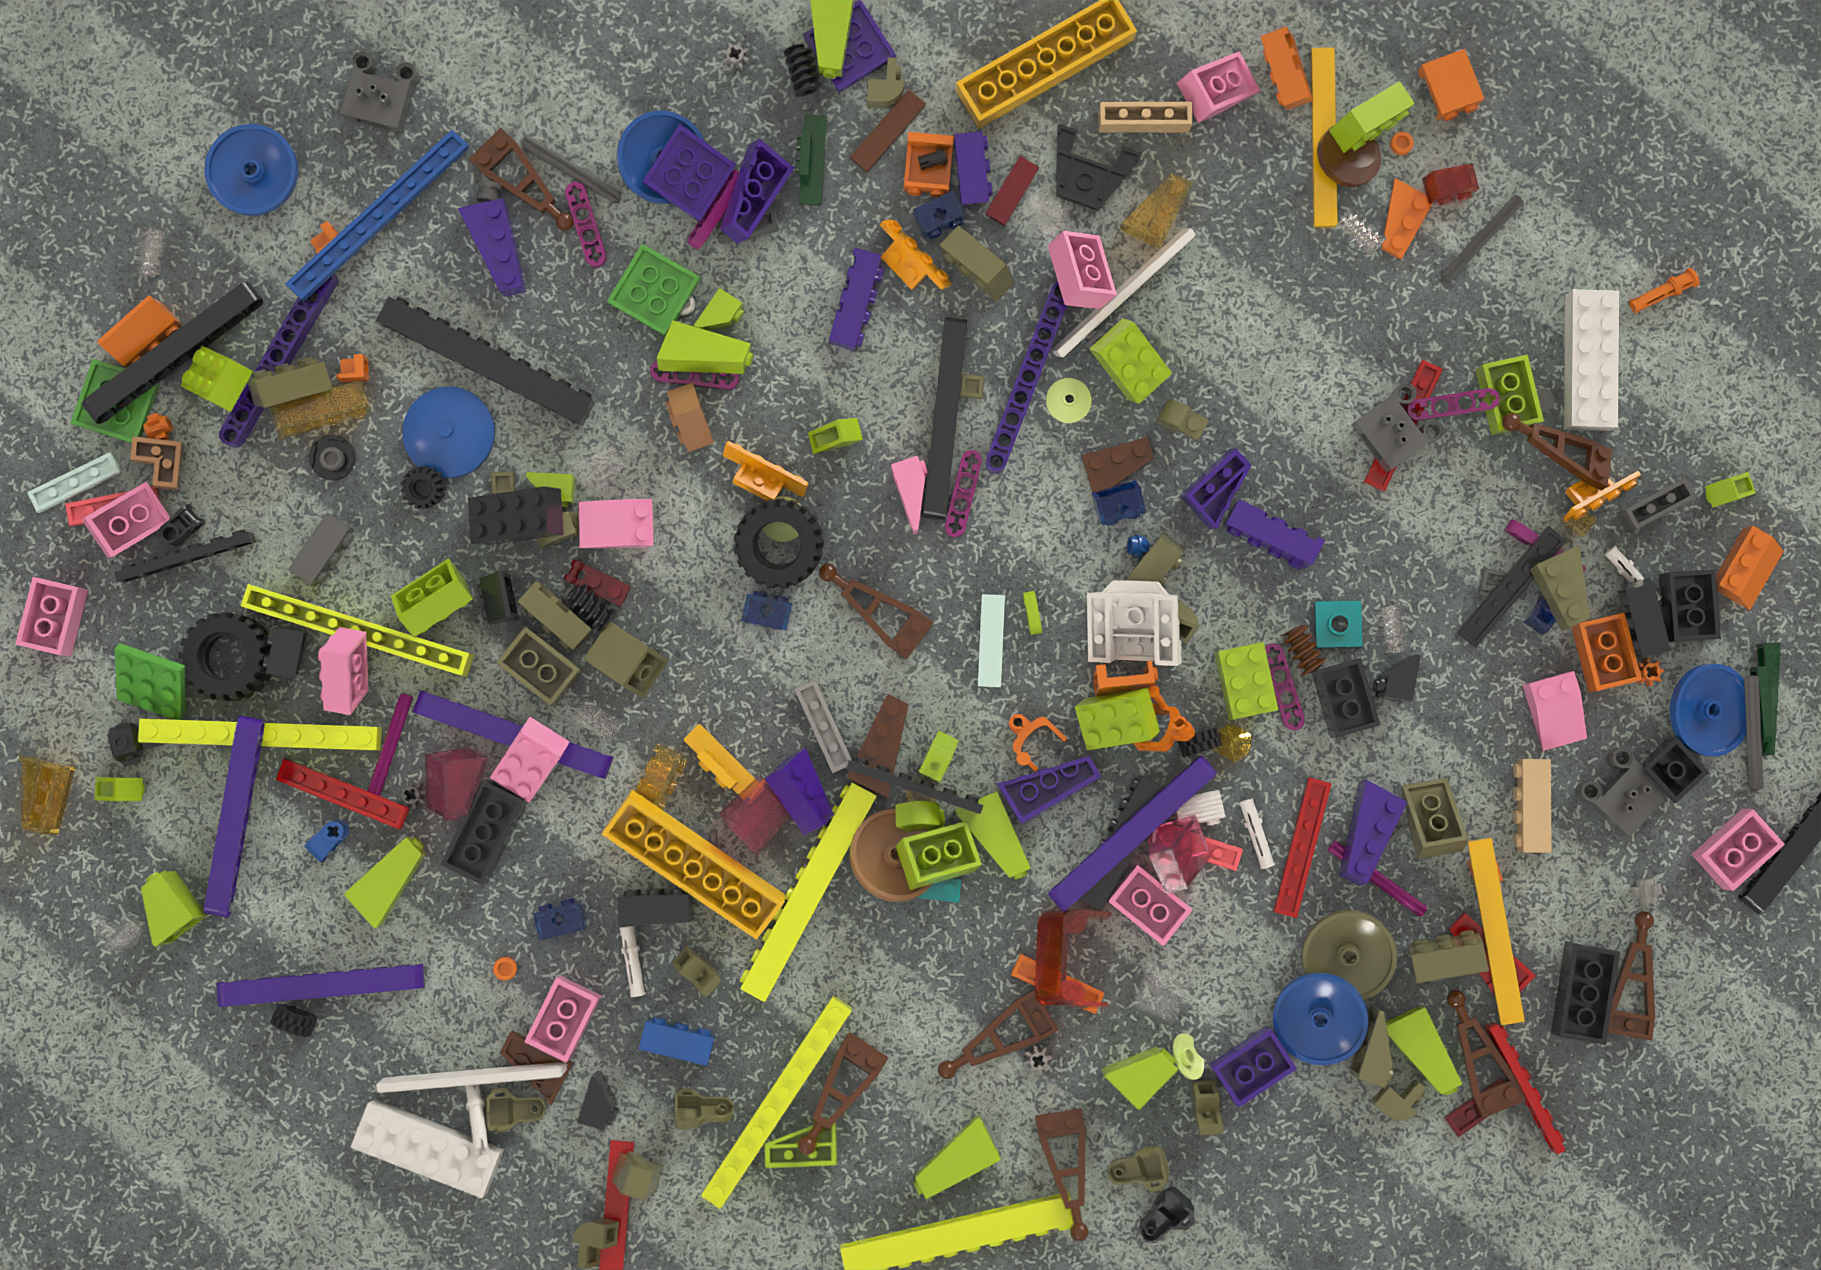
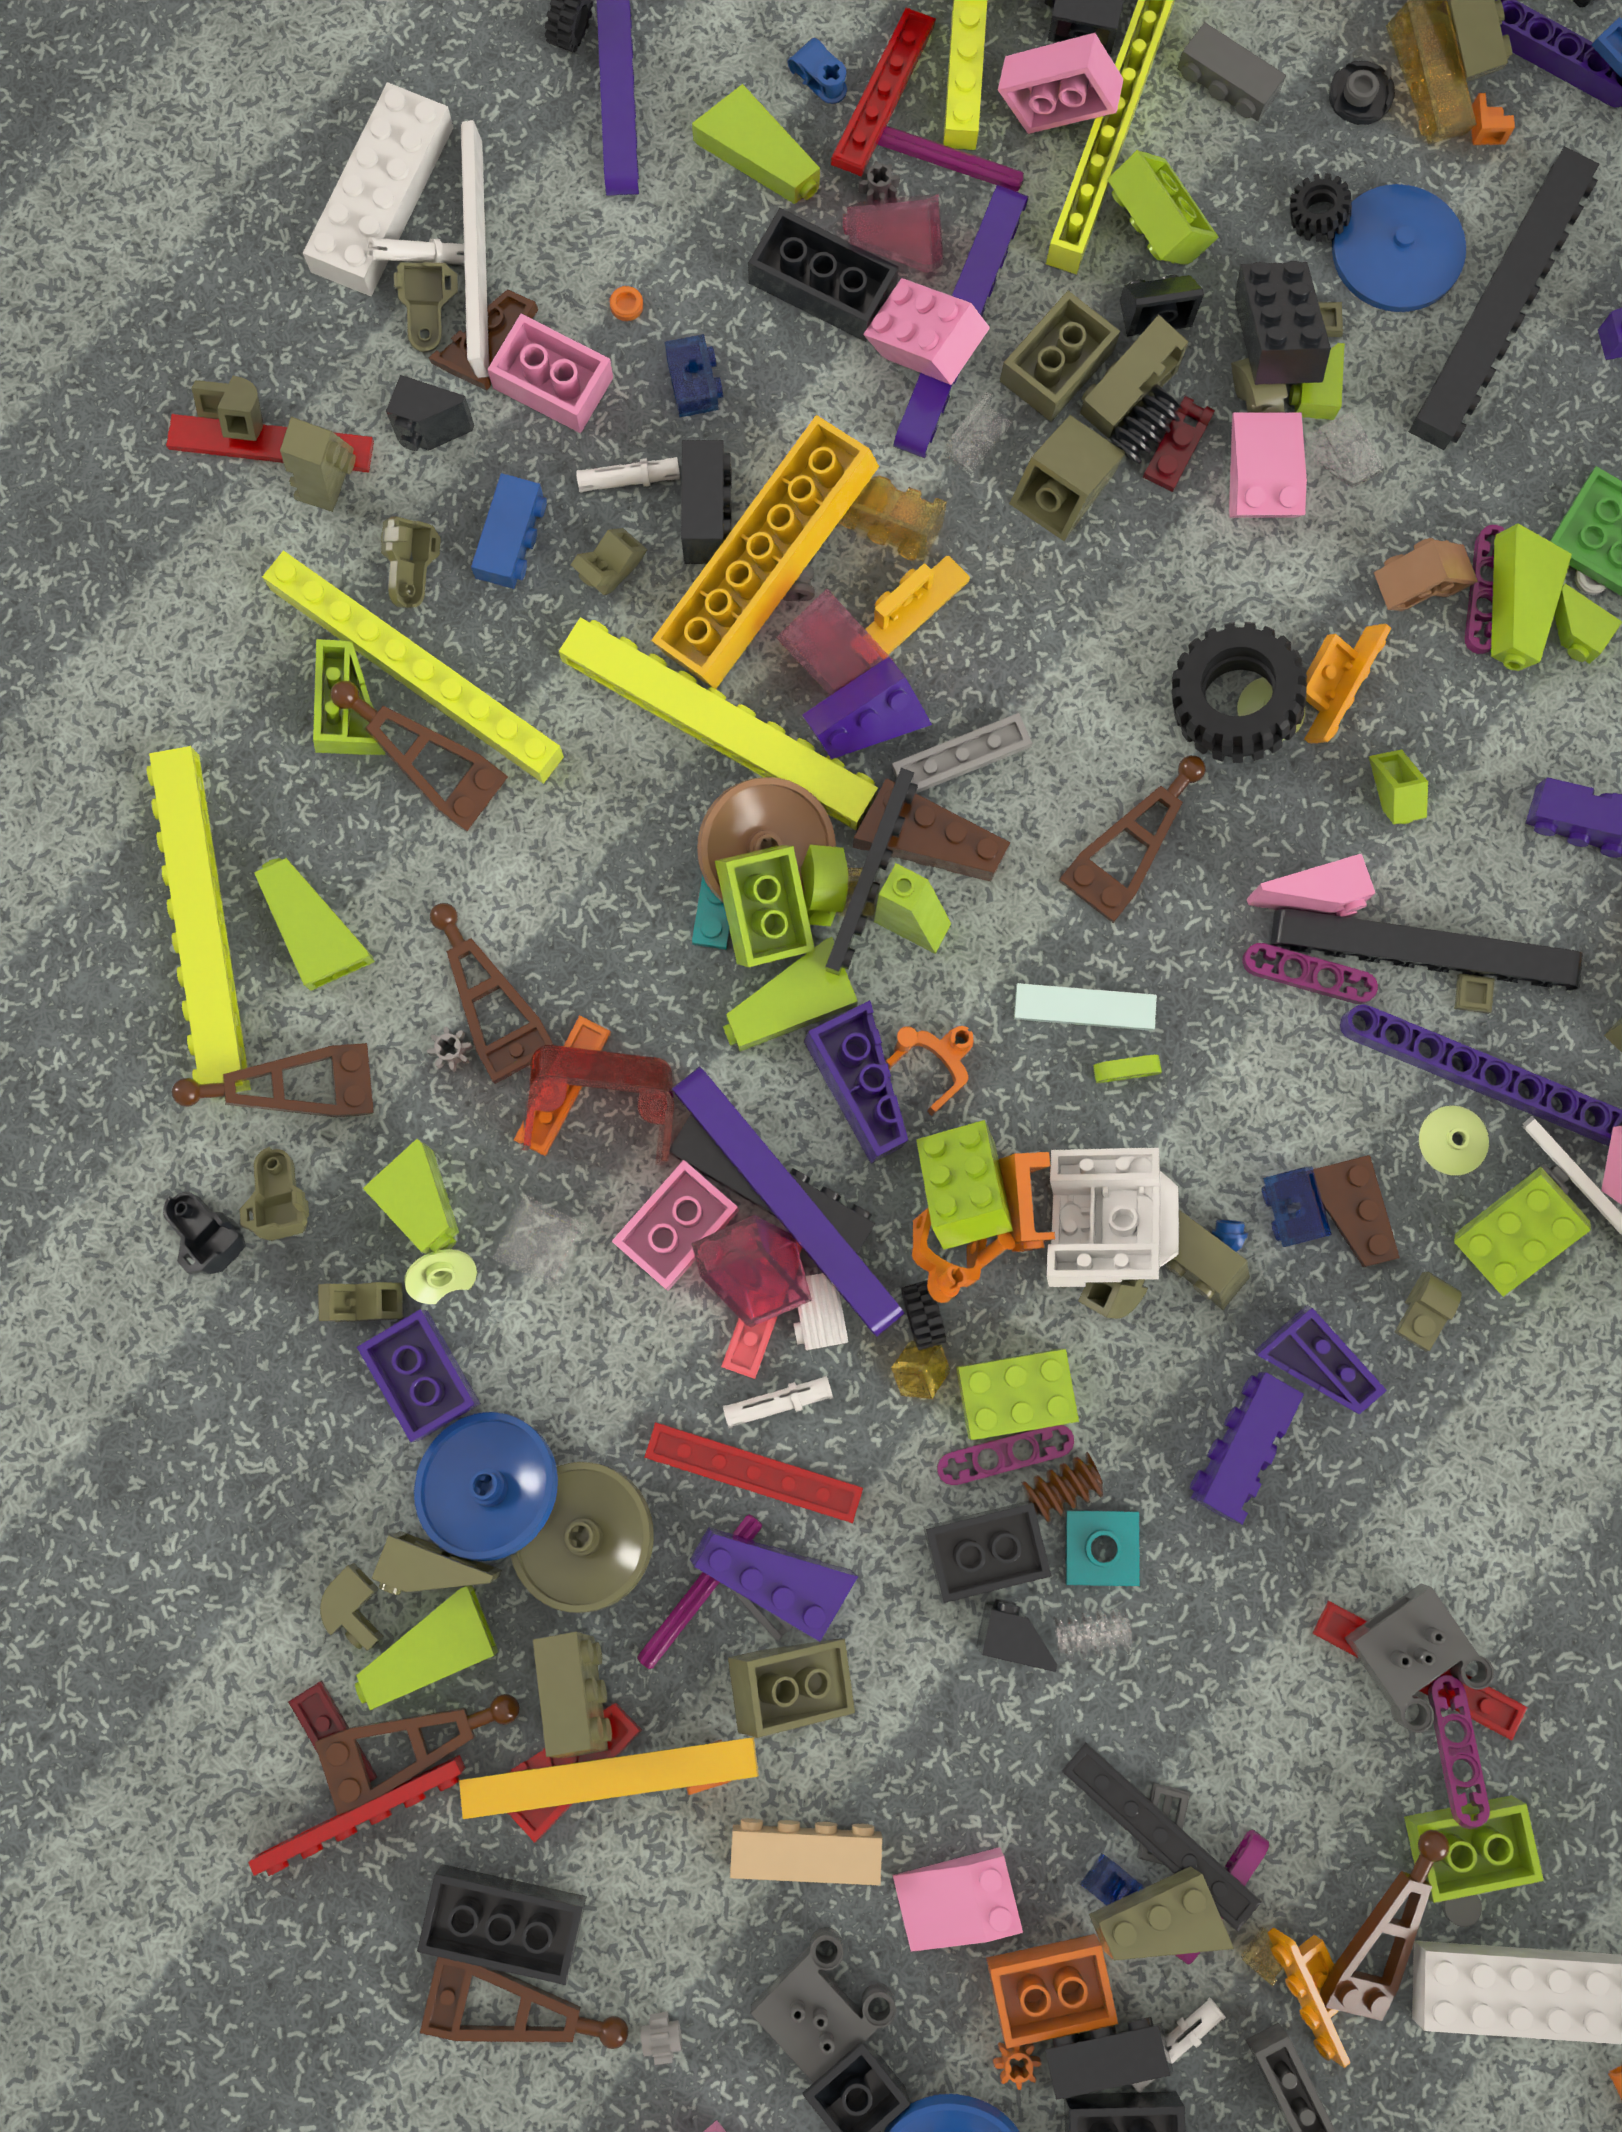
camera: 90 degrees right, 5 degrees down
(754, 615) = (1123, 694): clear blue brick -> none

